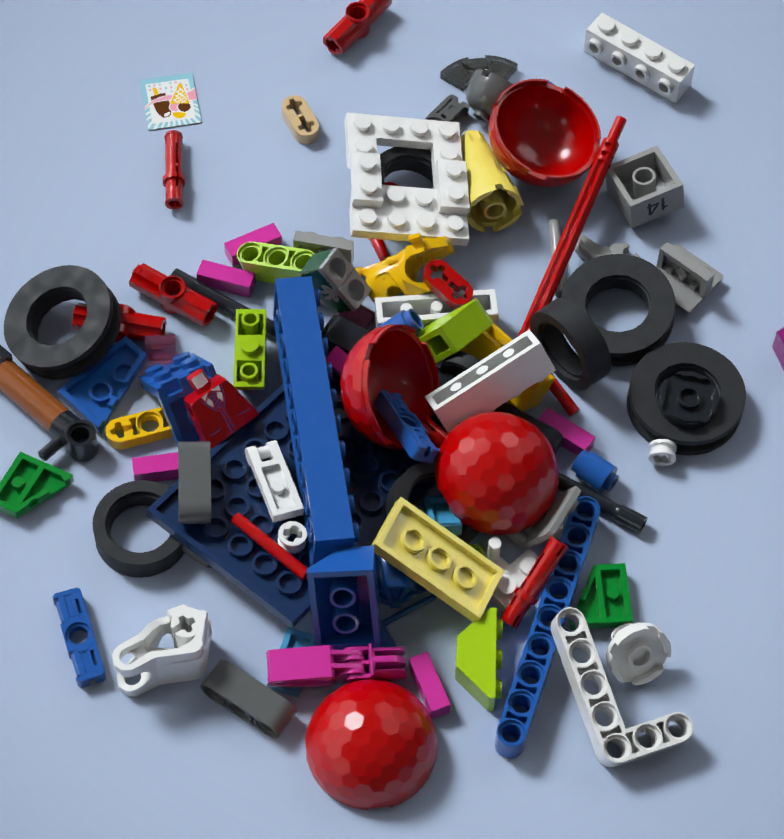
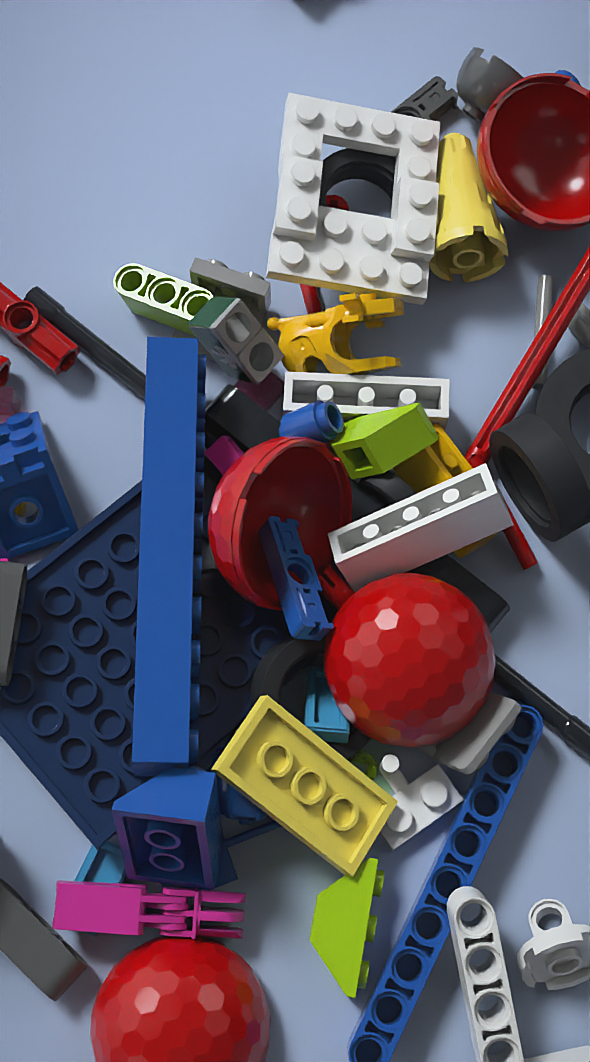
camera: 10 degrees right, 15 degrees up
(170, 101) = (70, 40): sticker -> none
(173, 178) = (54, 153): red pin -> none
(216, 407) = (46, 509): red torso -> none
(226, 278) = (99, 308): dark pink piece -> none
(250, 349) = (109, 425): lime slope -> none
(267, 234) = (158, 255): dark pink piece -> none
(270, 545) = (85, 729): red bar -> none
(274, 481) = (105, 632): white plate -> none
(285, 532) = (110, 707): white bush -> none
(296, 121) = (226, 90): tan beam -> none
(429, 685) = (271, 951): dark pink piece -> none
(452, 280) = (393, 362): red beam -> none
(461, 71) = (456, 43): clear smoke tile -> none
(533, 583) = (423, 840): red pin -> none
(575, 437) = (523, 603): dark pink piece -> none
(595, 471) = (545, 662): blue brick -> none
(606, 597) = (528, 855): green wing -> none

